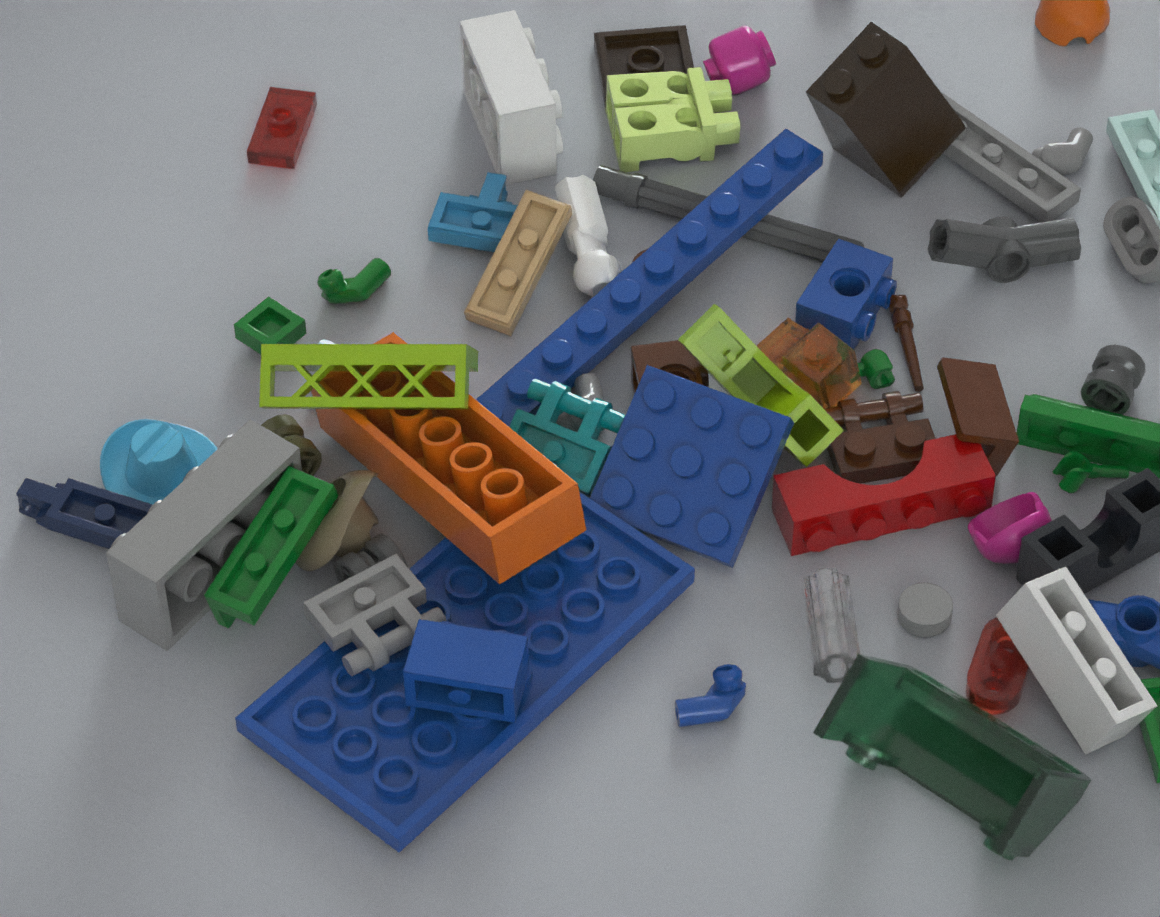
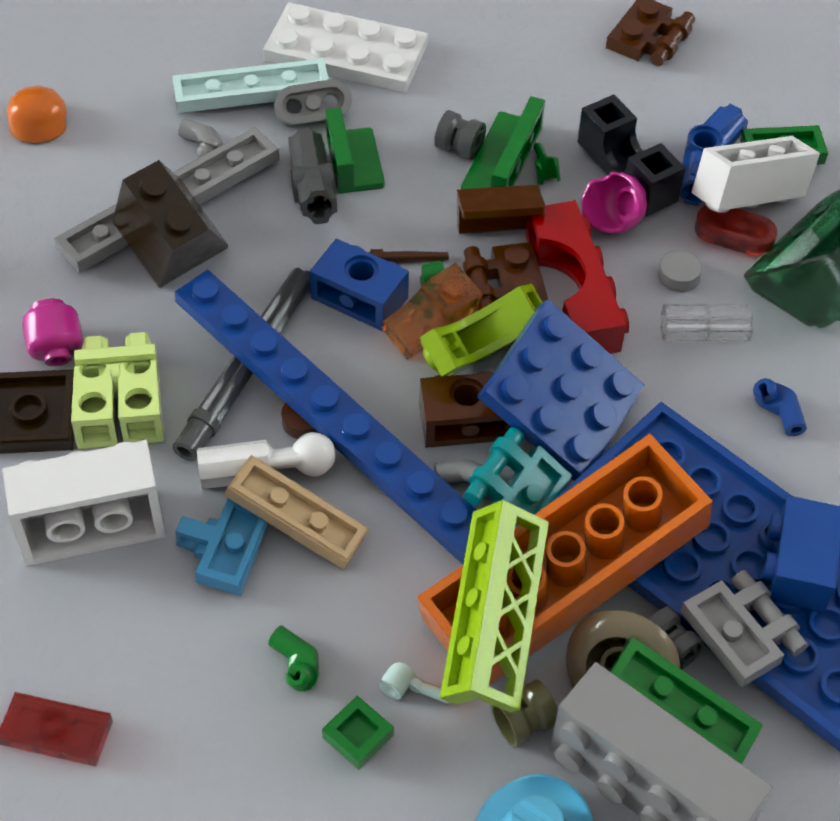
camera: 90 degrees left, 5 degrees up
(1063, 283) = (352, 155): none -> green panel

